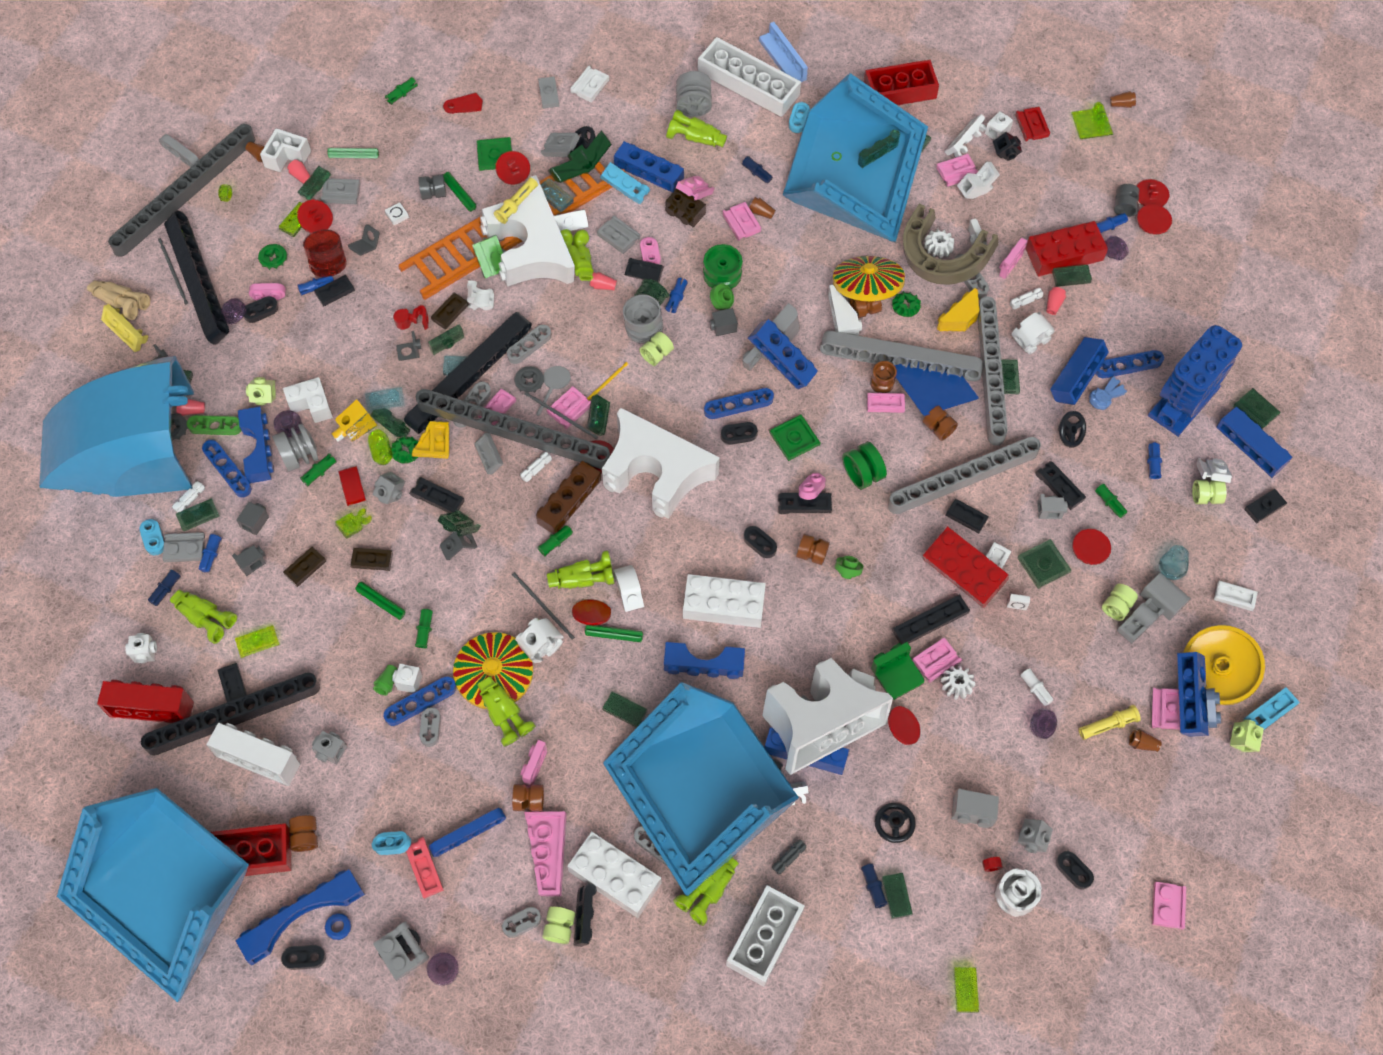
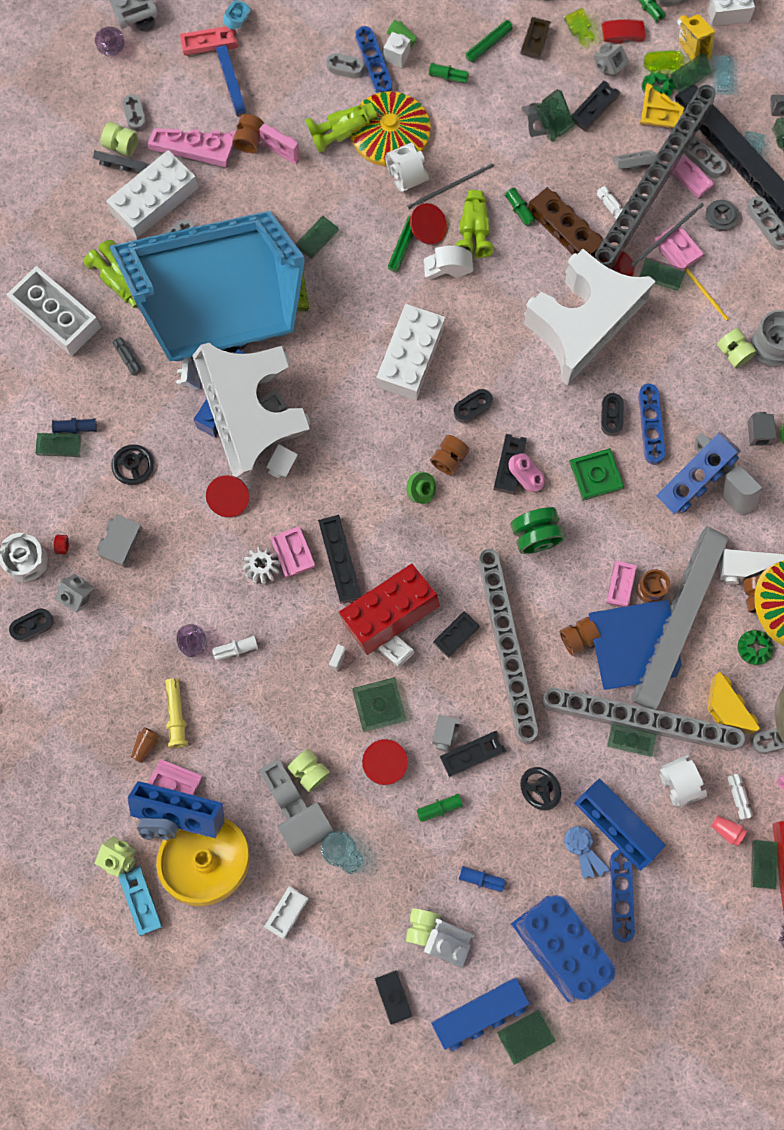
camera: 105 degrees right, 10 degrees up
(554, 378) = (718, 243): light grey piece -> none
(728, 663) = (357, 297): blue arch -> none
(897, 671) = (289, 507): green bracket -> none

